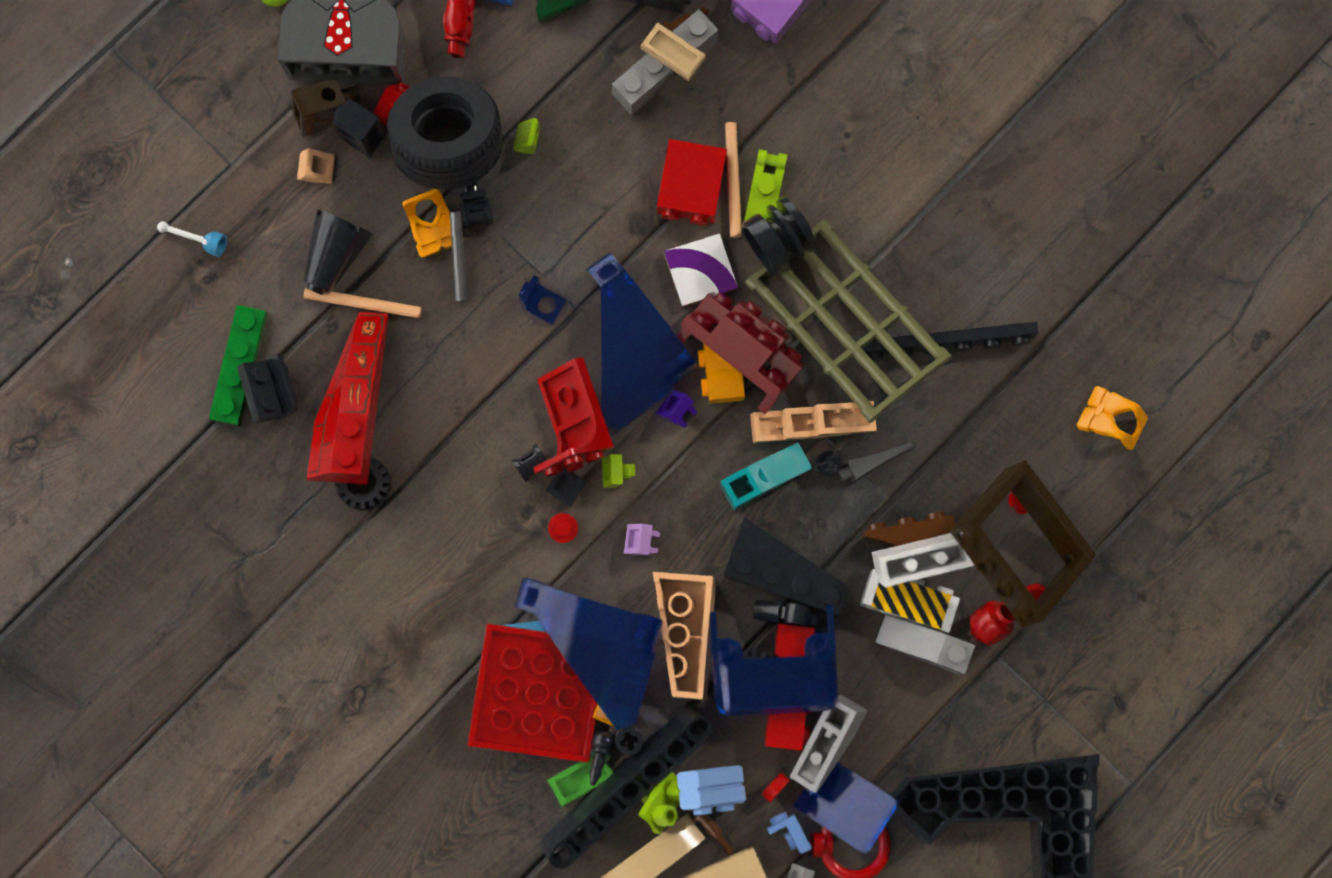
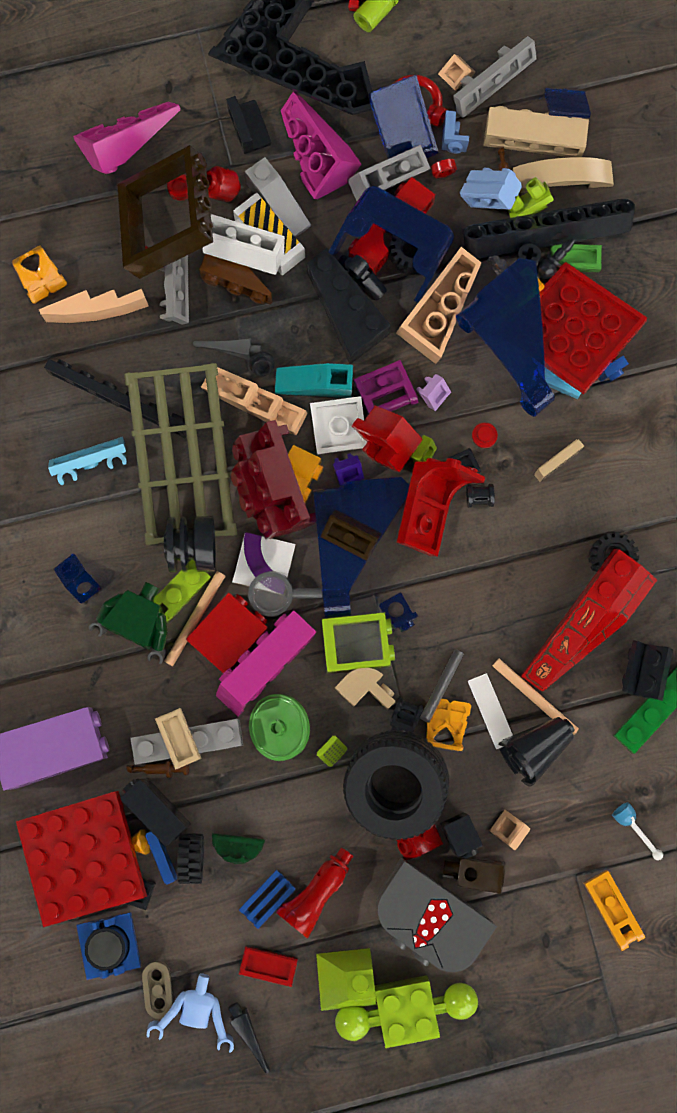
camera: 150 degrees left, 0 degrees up
(177, 152) = (613, 909): none -> light orange plate
(398, 266) = (490, 709): none -> white sticker
(469, 675) = (614, 369): none -> blue plate
(473, 546) = (558, 460): none -> tan tile
(536, 214) = (365, 680): none -> tan brick
(561, 249) = (359, 642): none -> window
(588, 125) = (279, 727): none -> bright green shield
(631, 338) = (350, 535): none -> dark brown slope
(638, 175) = (264, 662): none -> dark pink wedge
(655, 458) = (388, 437): none -> red plate
(672, 244) = (273, 593): none -> piece
(696, 518) = (384, 382): none -> magenta plate
(713, 448) = (333, 425): none -> white plate
(785, 137) = (135, 619): none -> dark green torso
(873, 147) = (72, 574): none -> clear blue bracket
(911, 725) = (321, 152): none -> dark pink wedge
(936, 265) = (87, 458): none -> medium azure plate
(963, 484) = (176, 292): none -> light grey plate
(1009, 710) = (248, 124): none -> black panel
(1039, 411) = (83, 308): none -> light nougat slope
(1127, 606) = (115, 144): none -> dark pink wedge

